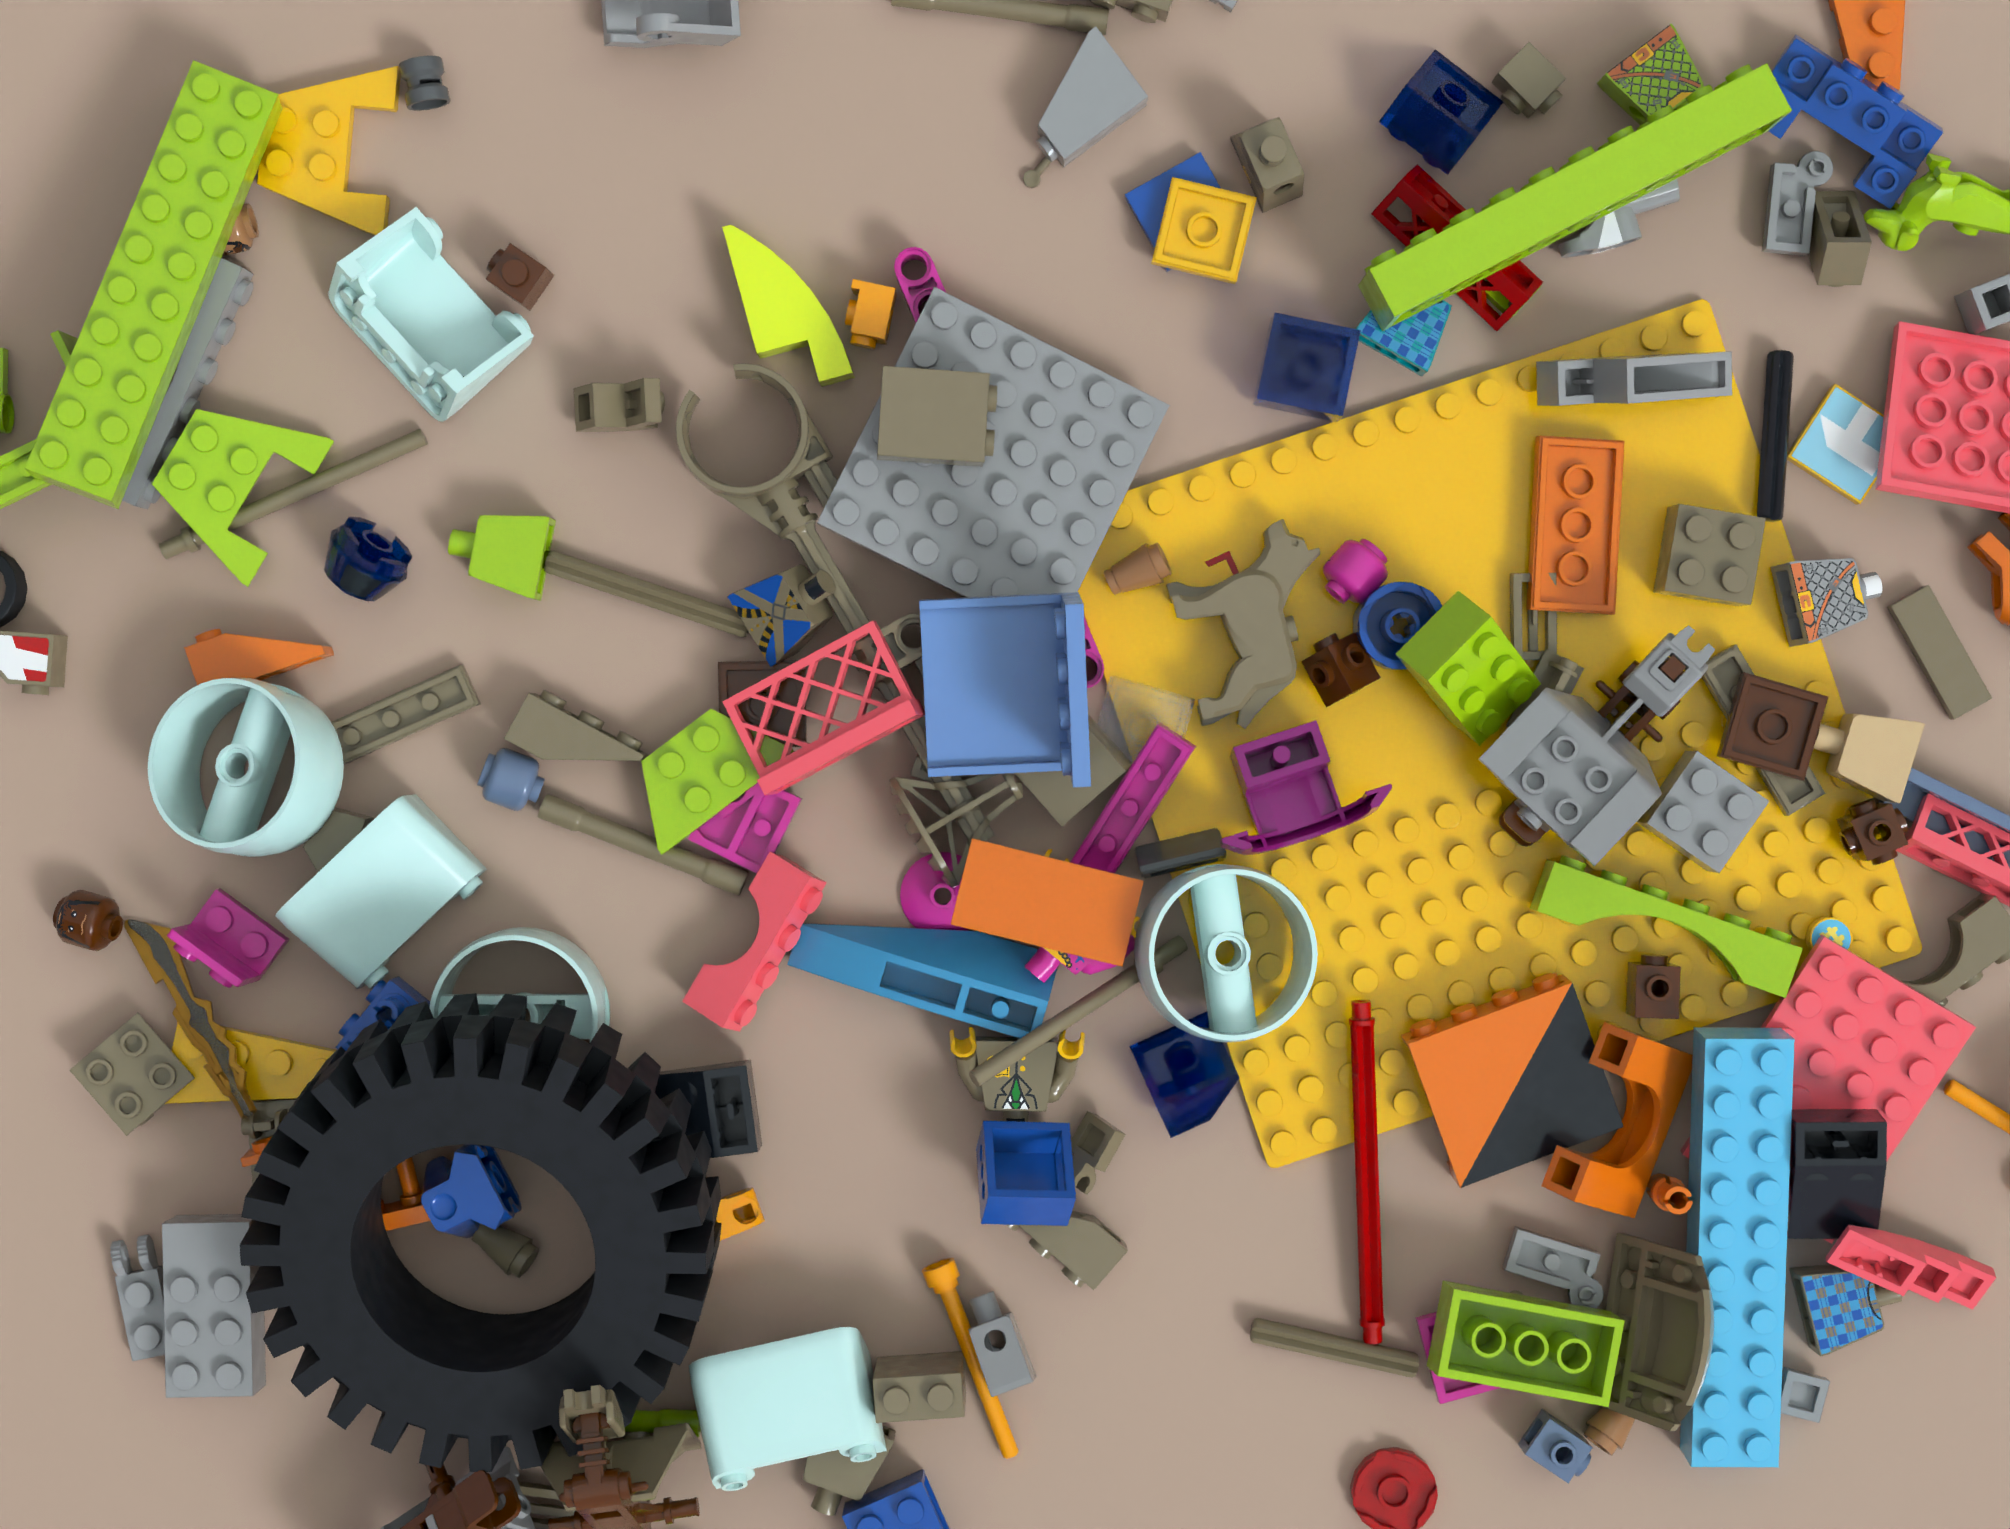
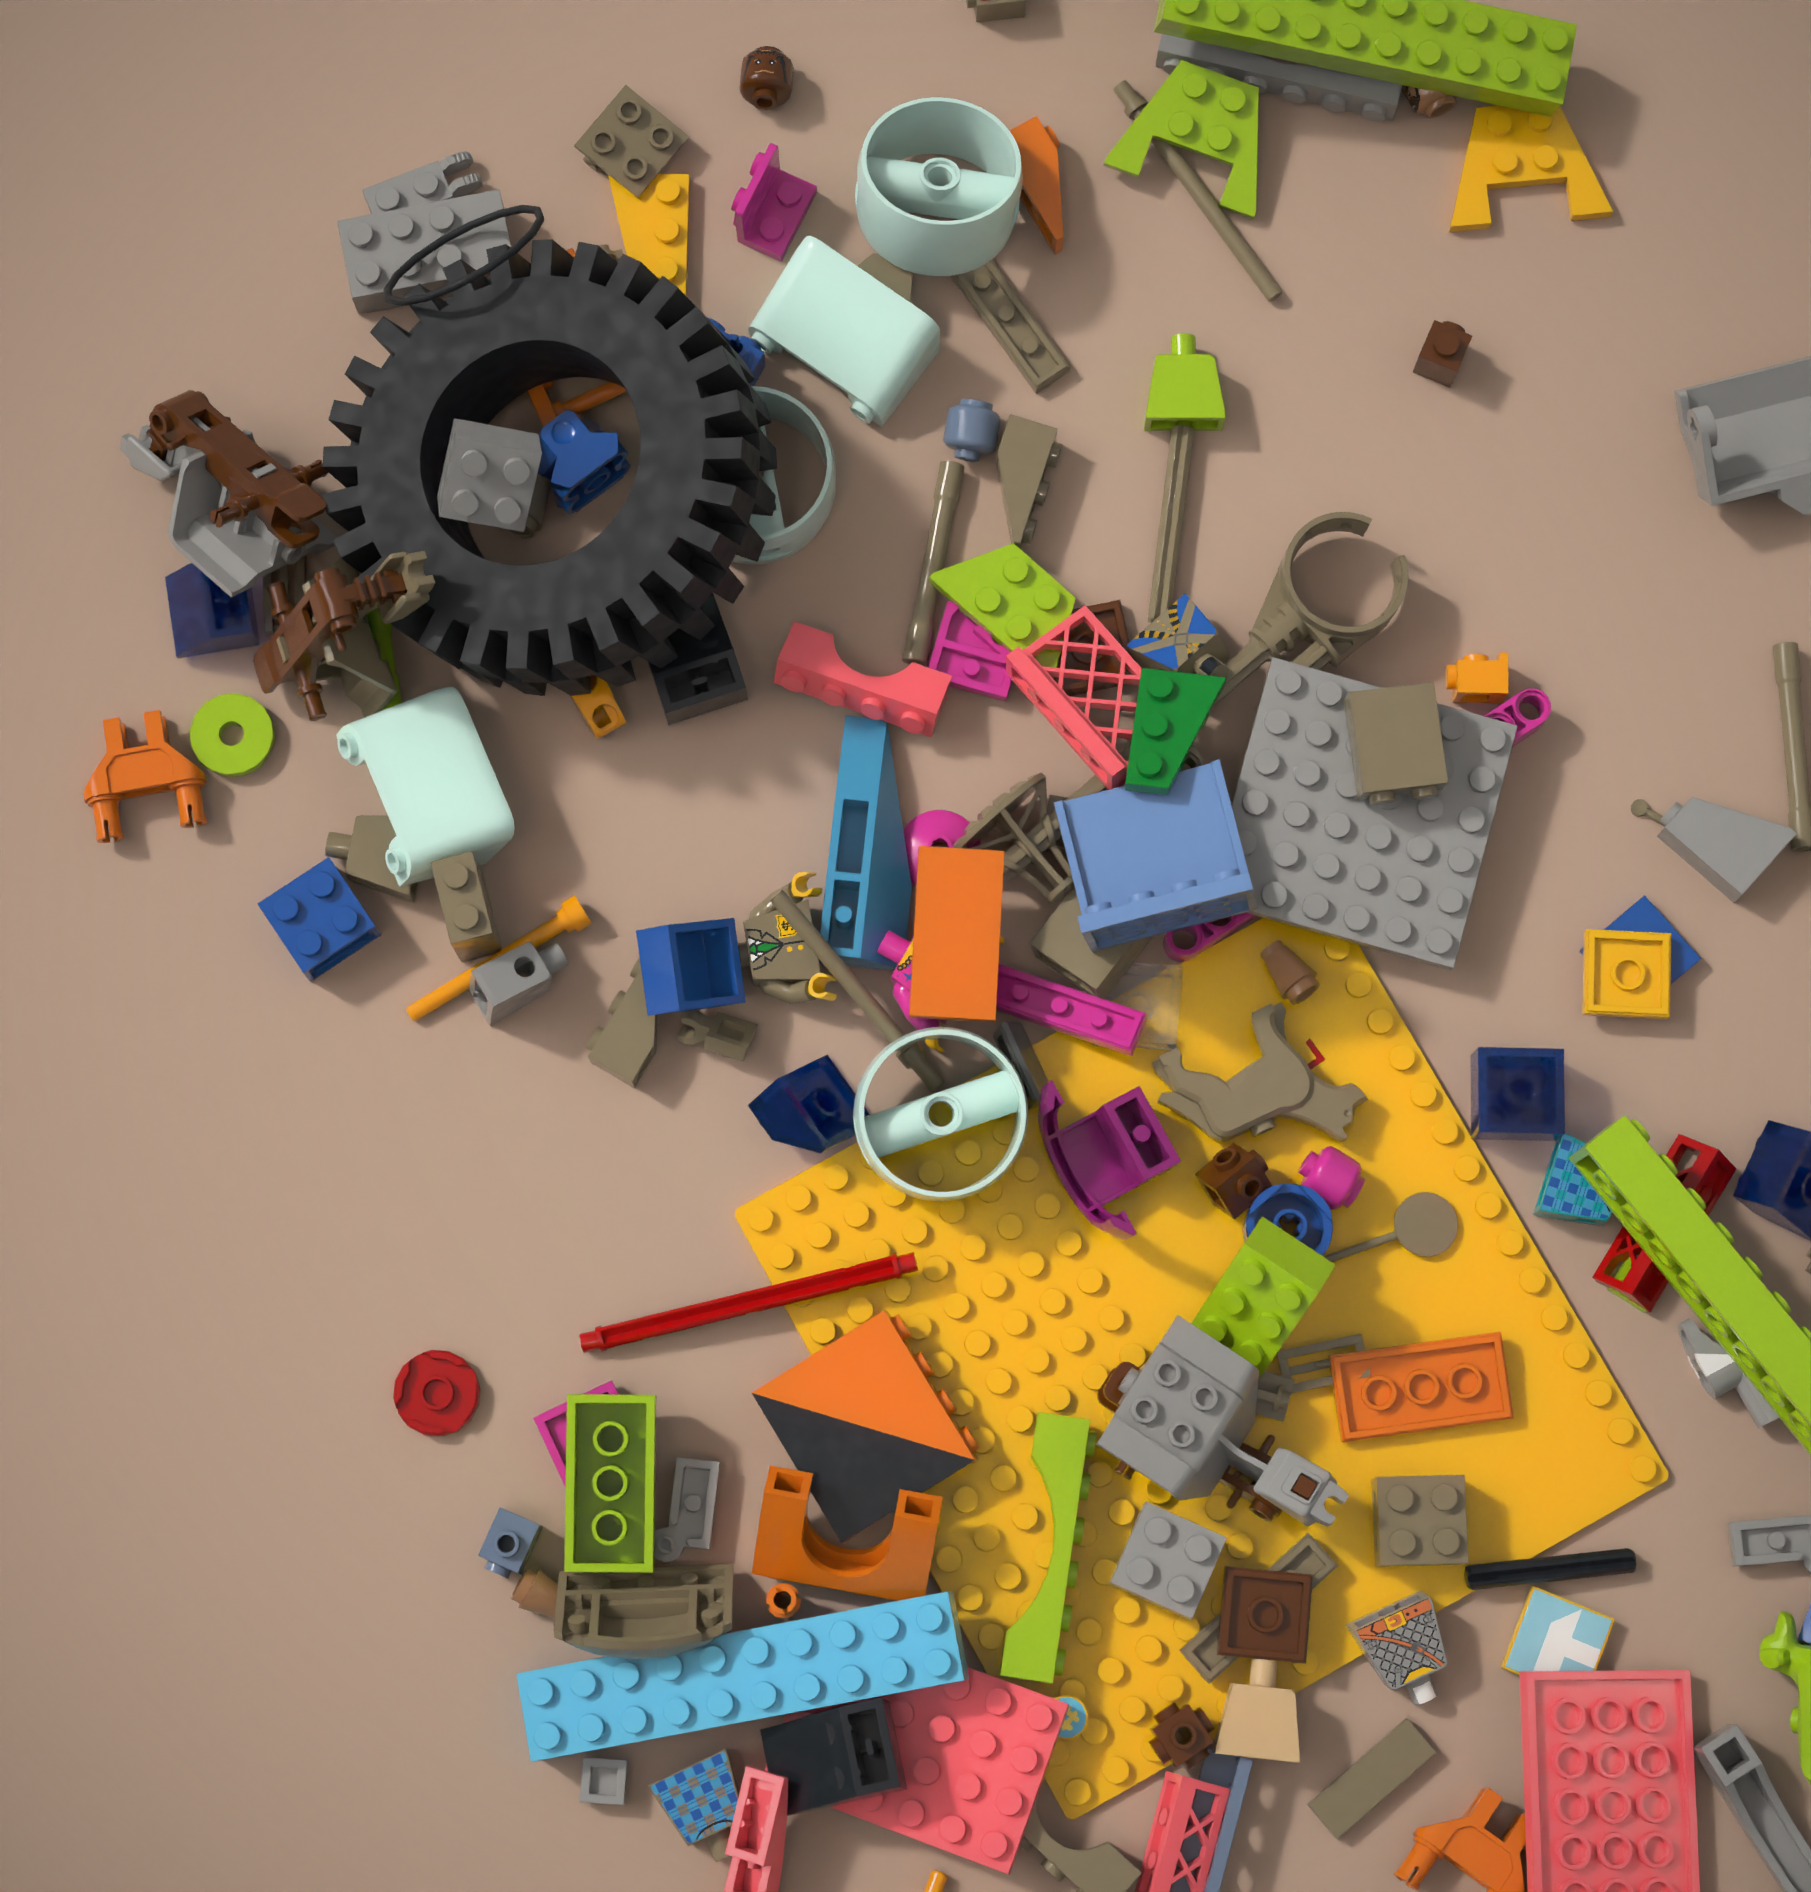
camera: 80 degrees right, 10 degrees down
(192, 1013) = (697, 185): pearl gold sword -> none
(255, 1249) = (474, 275): none -> black piece
(365, 561) = (1149, 261): clear blue cone -> none
(424, 83) = (1602, 237): dark grey wheel -> none
(424, 316) = (1388, 275): light aqua windscreen -> none
(487, 1303) = (489, 475): none -> light grey brick
(619, 406) = (1341, 463): dark tan brick -> none
(784, 309) = (1463, 599): neon yellow slope -> none
(871, 647) = (1166, 723): none -> green wing
(1269, 163) = (1704, 1023): dark tan torso -> none
(1334, 1347) = (569, 1307): dark tan axle -> none
(1415, 489) = (1422, 1225): none -> dark tan piece
(1634, 378) = (1576, 1413): light grey slope -> none
(1653, 988) = (984, 1546): reddish brown brick -> none
(1838, 239) = (1757, 1592): dark tan slope -> none

